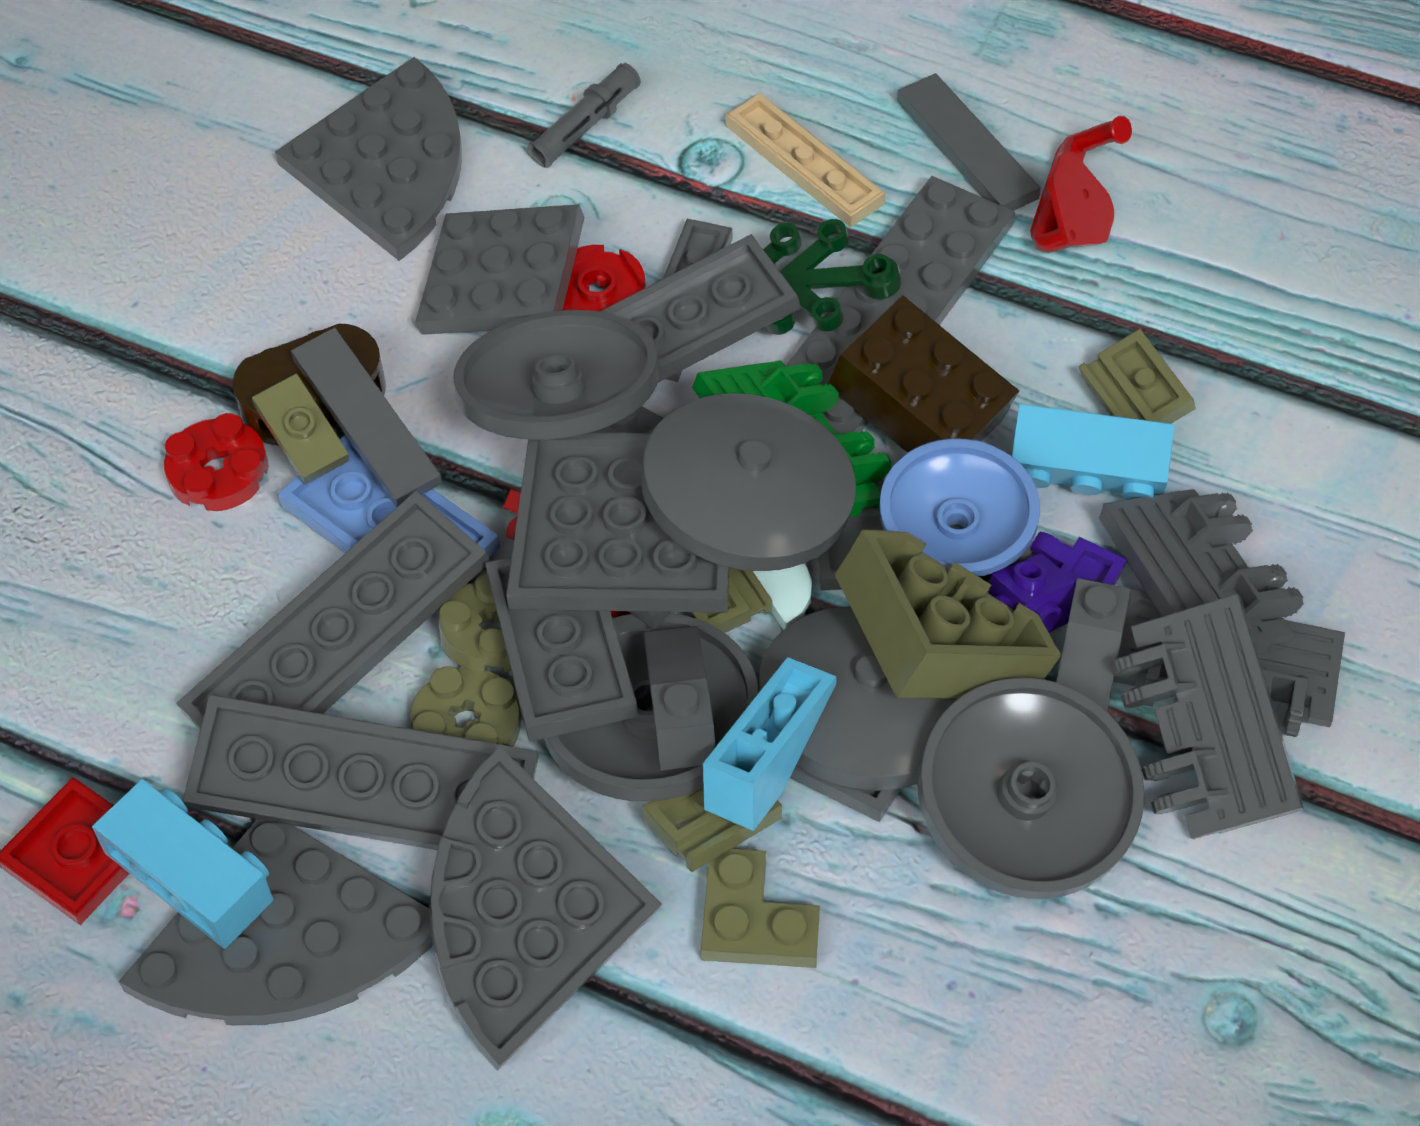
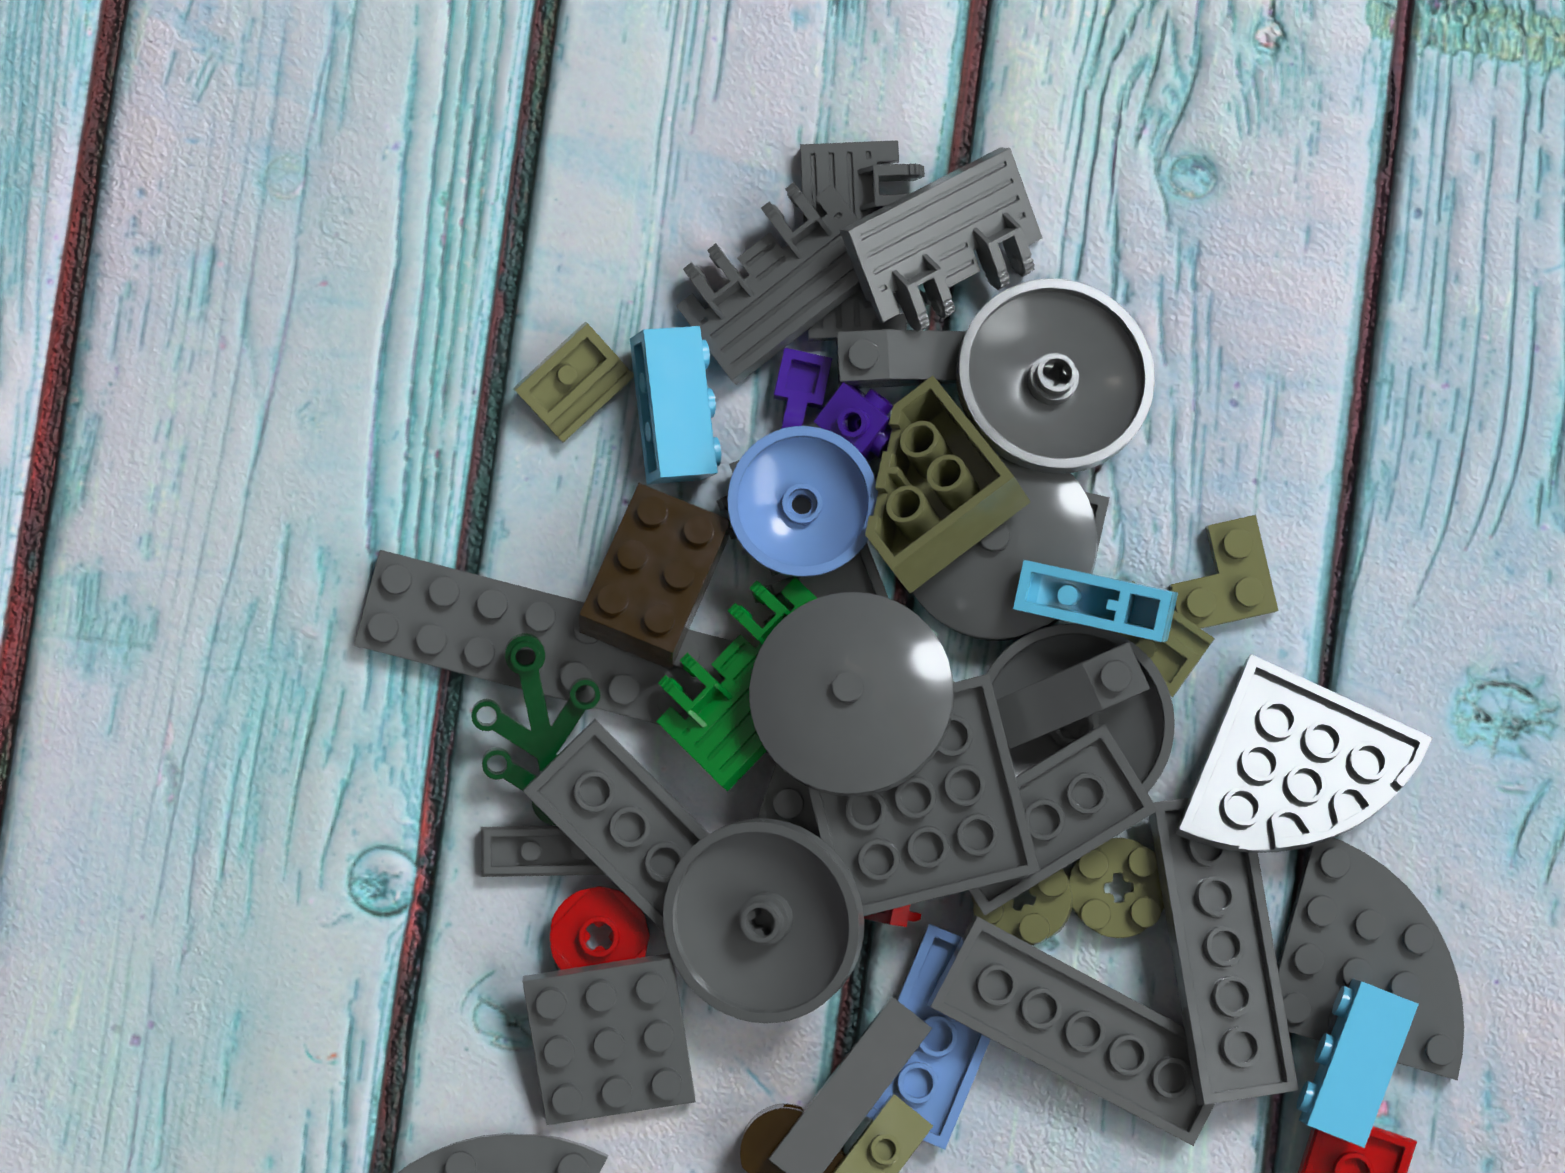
camera: 110 degrees left, 30 degrees up
(597, 103) = (359, 1026): dark grey pin -> none
(805, 159) = (358, 784): tan tile -> none
(968, 143) = (291, 622): dark grey tile -> none
(1073, 194) = (356, 495): red piece -> none

